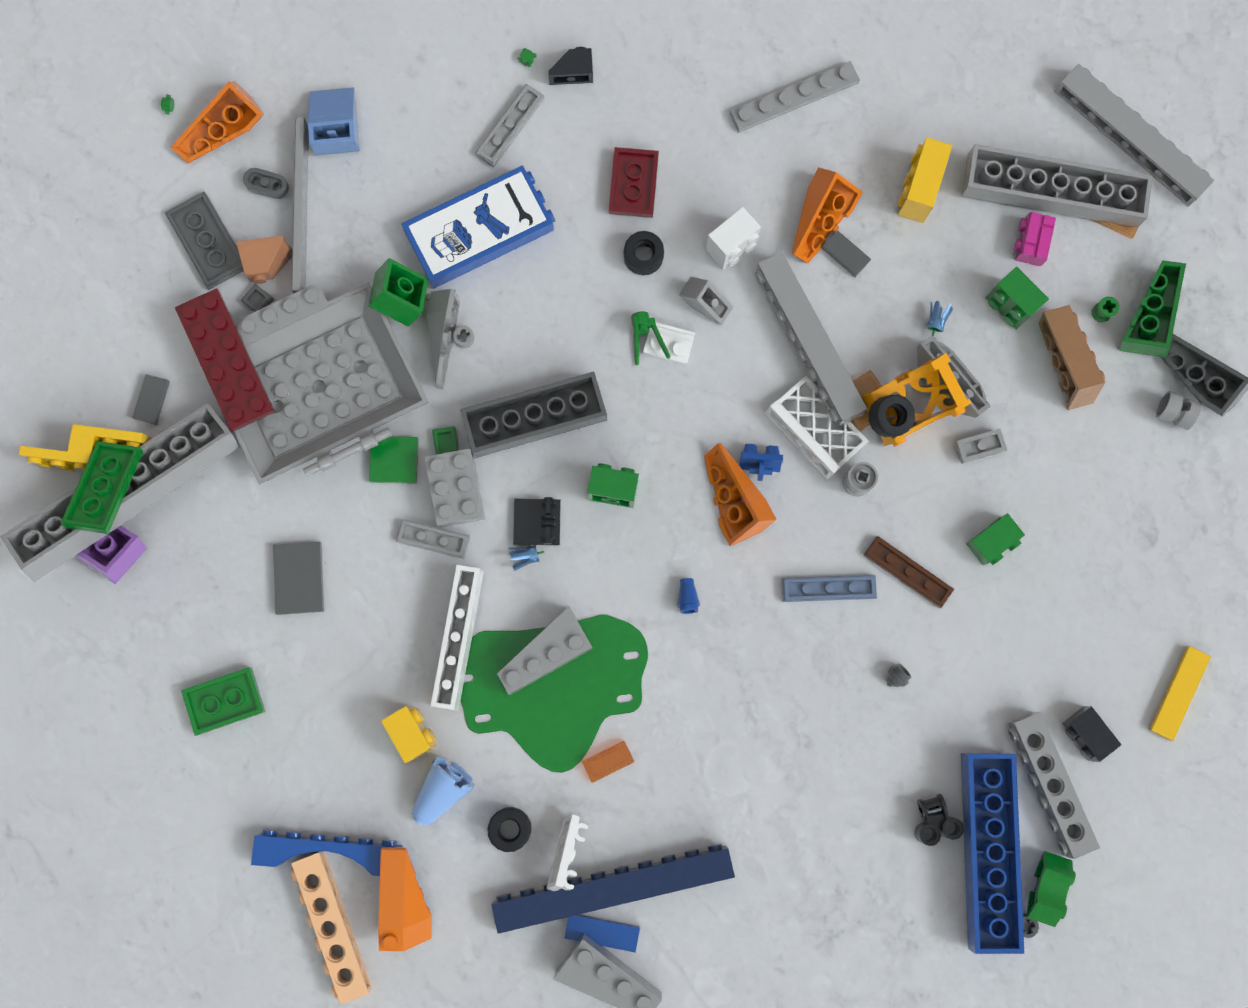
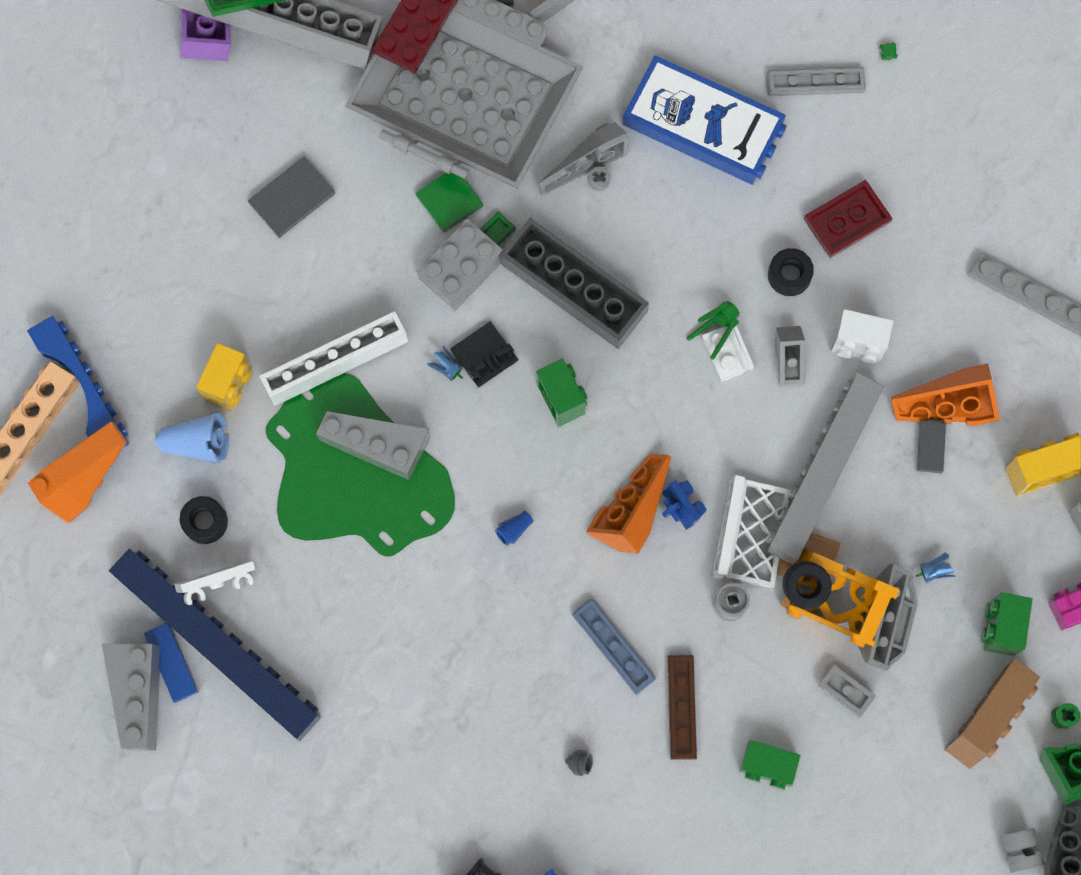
camera: 60 degrees right, 5 degrees down
(223, 701) = (145, 212): green plate -> none
(398, 292) = (592, 95): green brick -> none
(433, 539) = (405, 280): light grey tile -> none
(573, 67) = (909, 94): black slope -> none
(608, 761) = (321, 562): clear orange tile -> none

